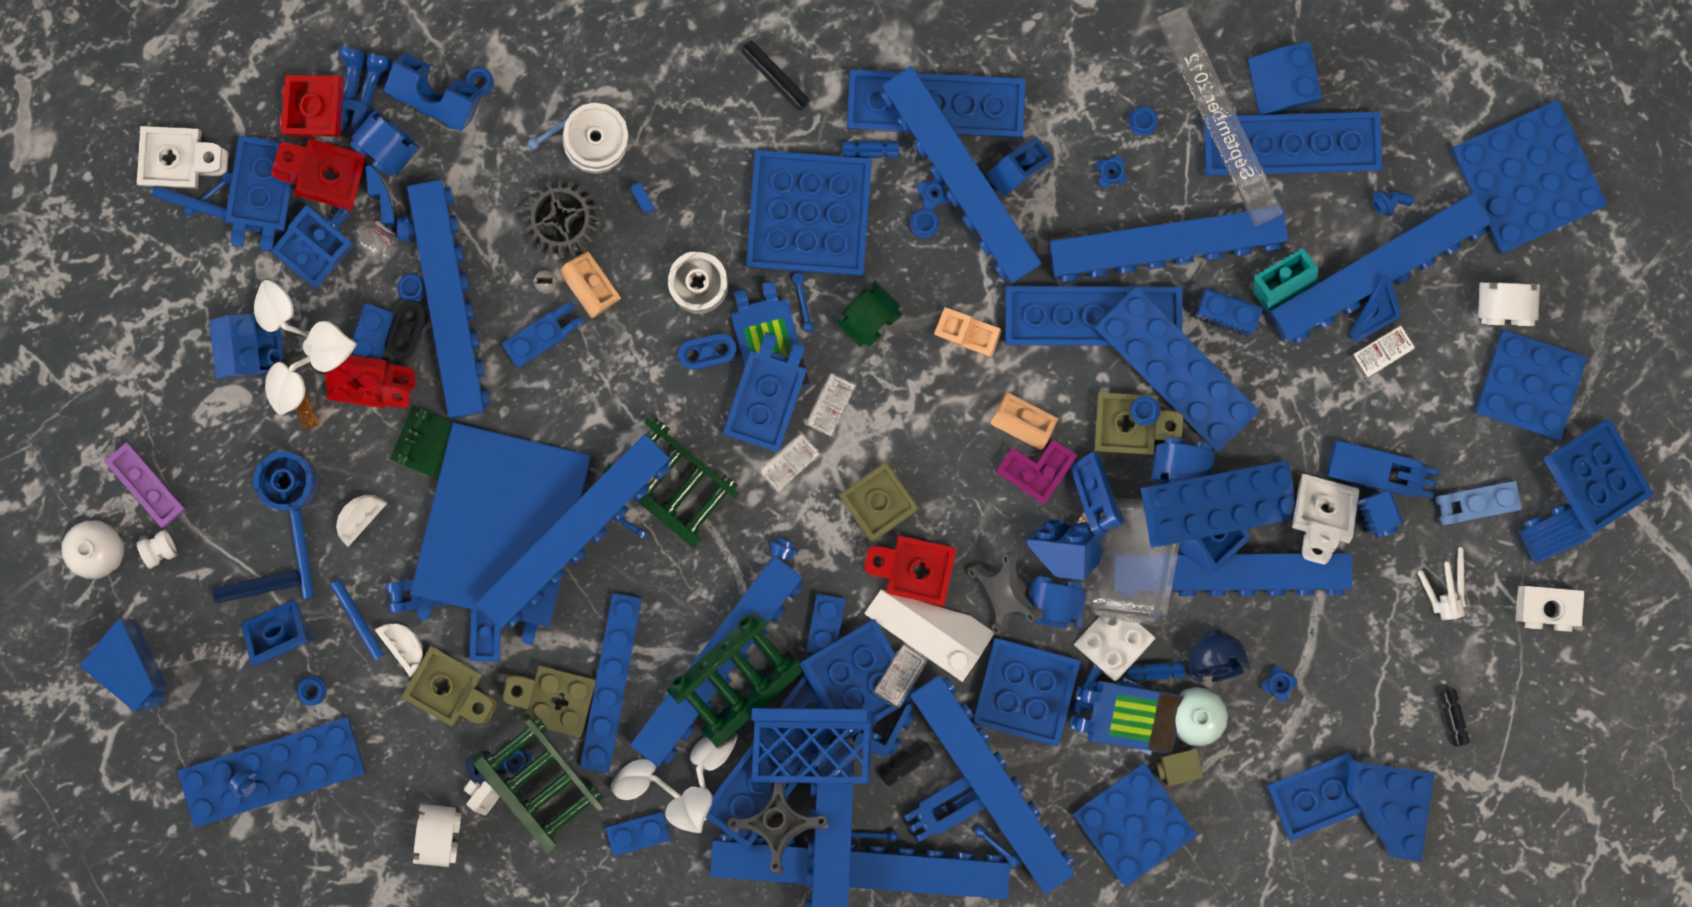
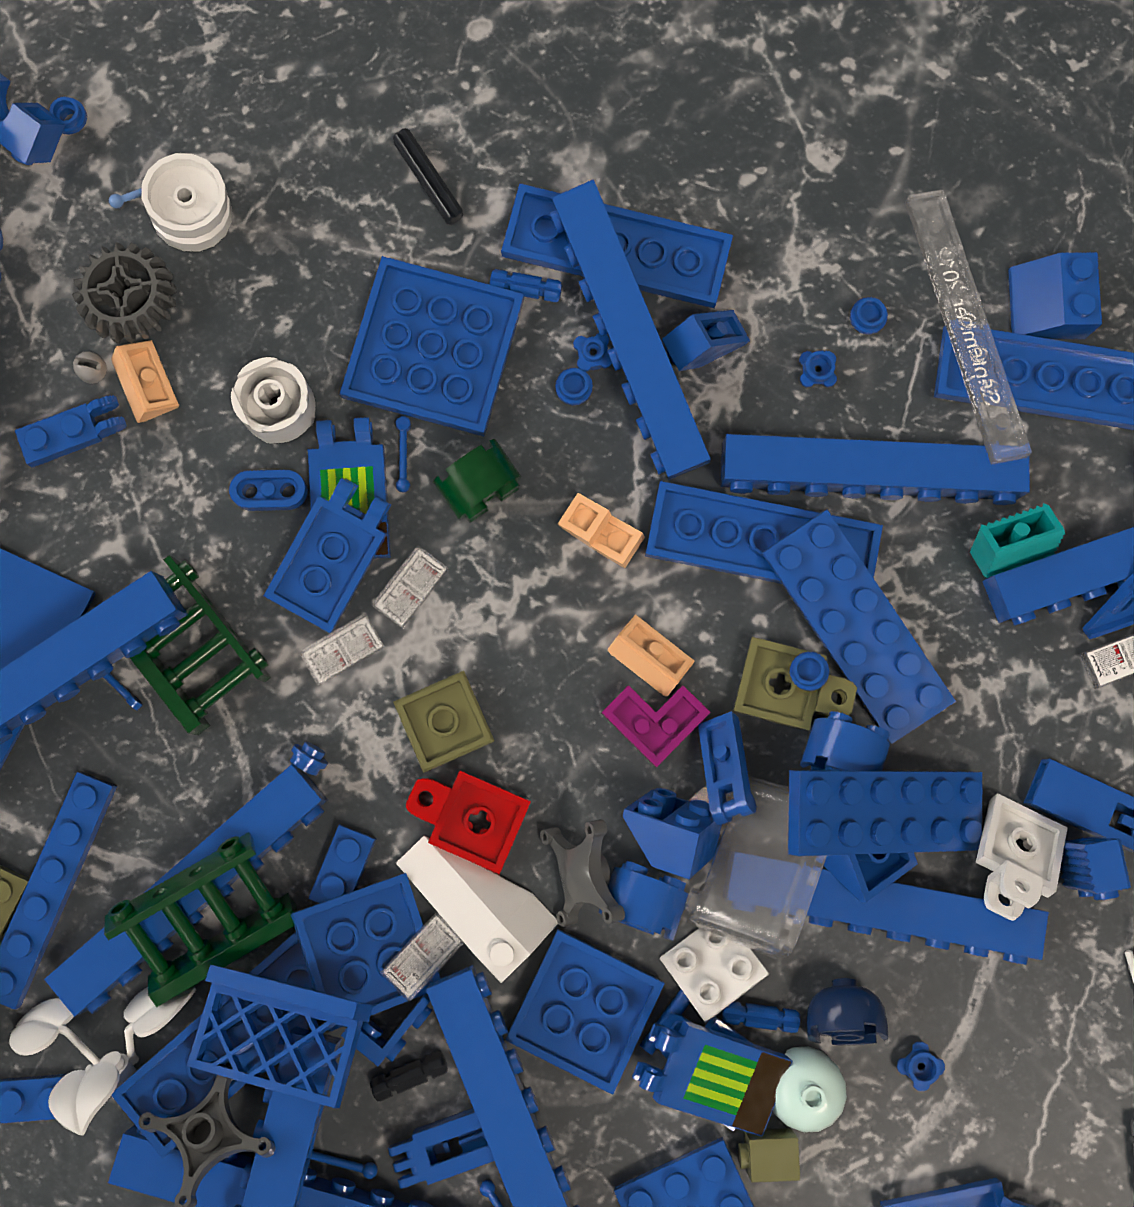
camera: 15 degrees right, 5 degrees down
(642, 199) = (231, 288): blue tile -> none
(1228, 312) = (936, 568): blue brick -> none

